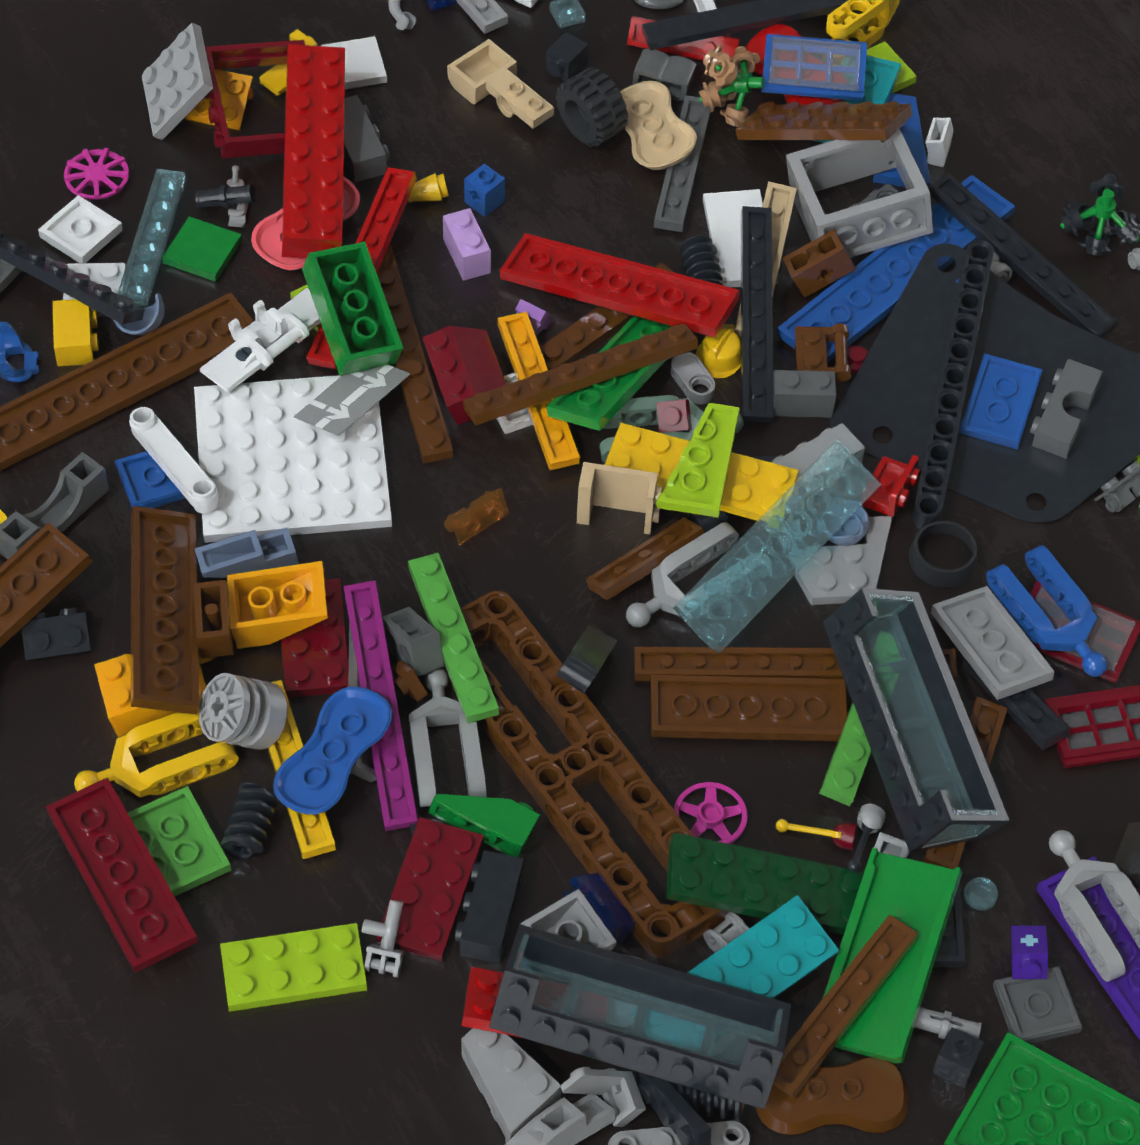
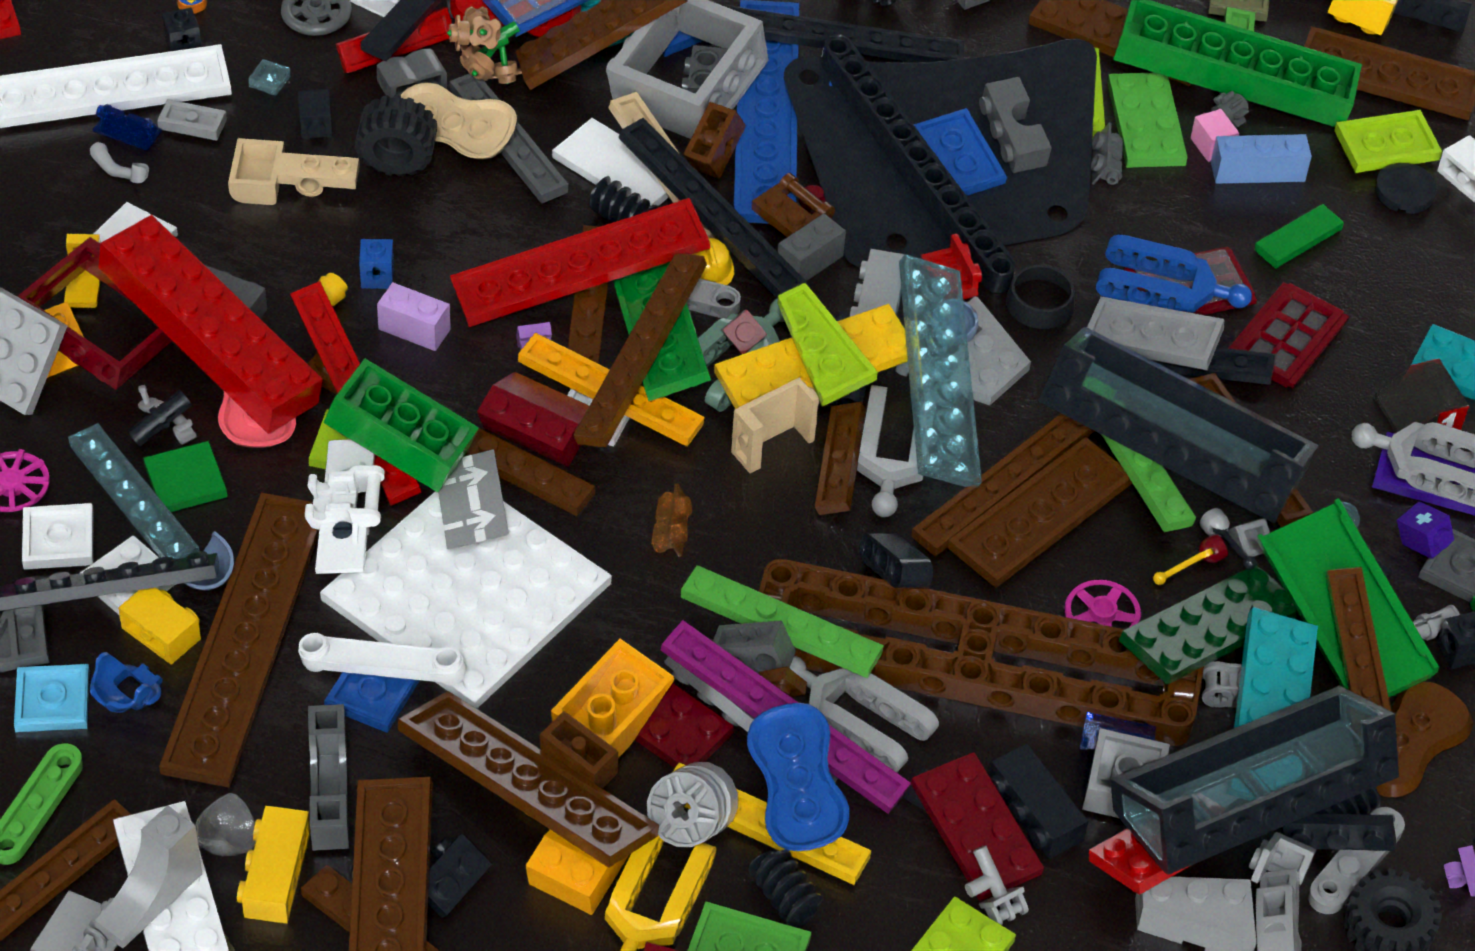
camera: 45 degrees left, 5 degrees down
(247, 553) = (534, 687): sand blue slope -> none
(500, 820) = (976, 729): green slope -> none

